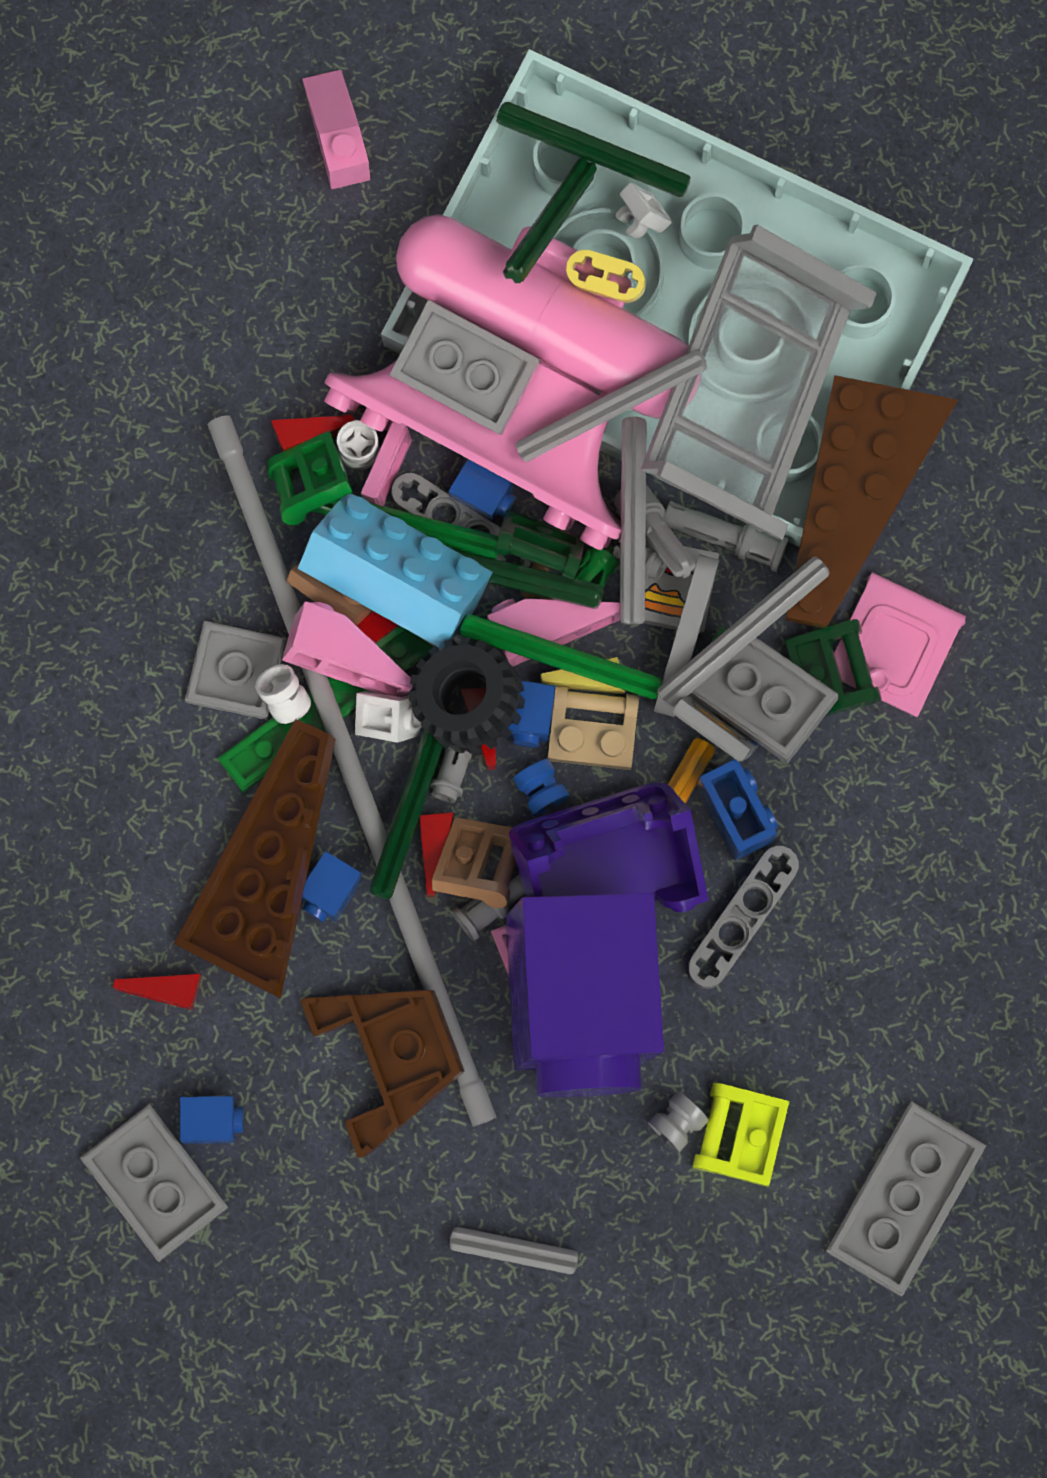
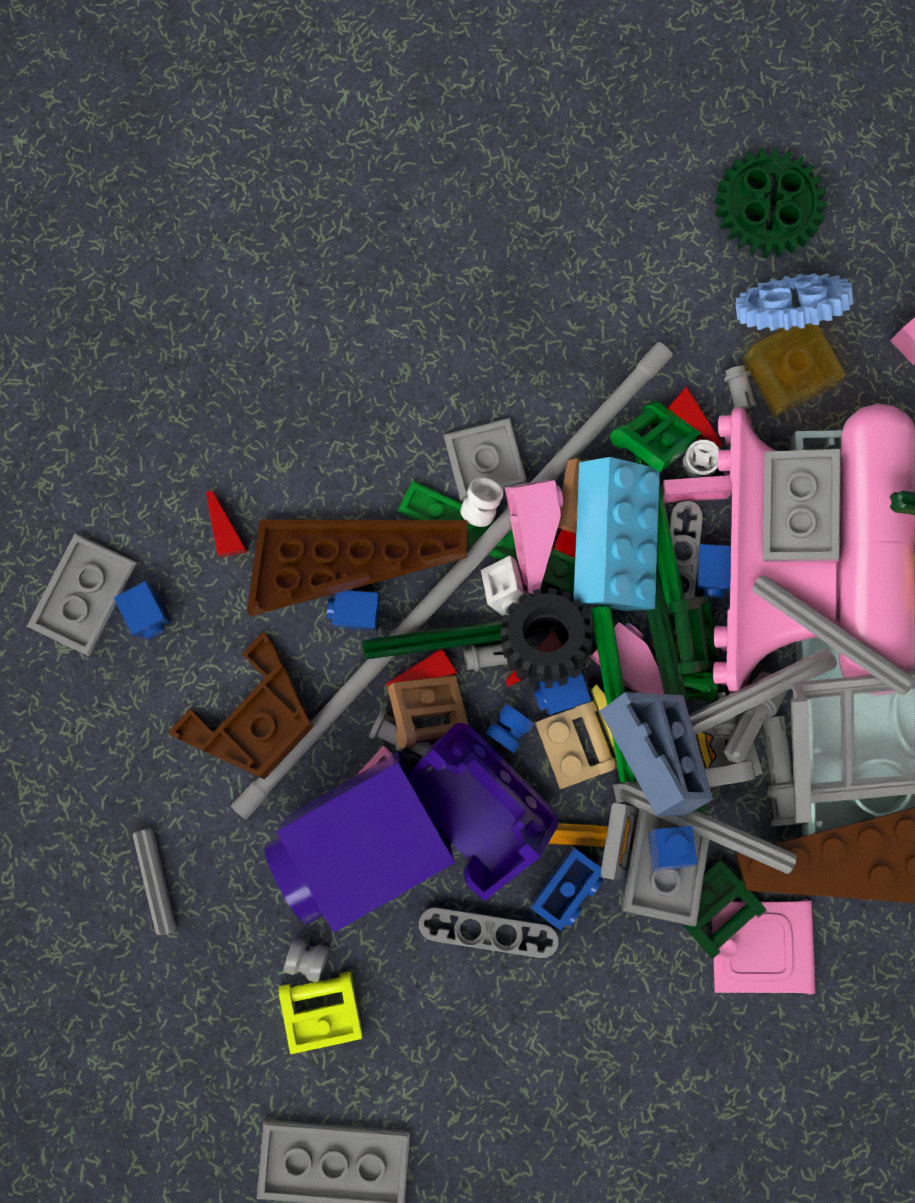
camera: 70 degrees right, 5 degrees up
(95, 259) = (801, 206): none -> dark green gear
(254, 239) = (815, 299): none -> light blue gear
(300, 366) = (740, 387): none -> light grey pin
(309, 300) = (793, 367): none -> clear yellow brick
(642, 636) = (660, 750): none -> sand blue wedge
(748, 676) = (672, 848): none -> blue brick

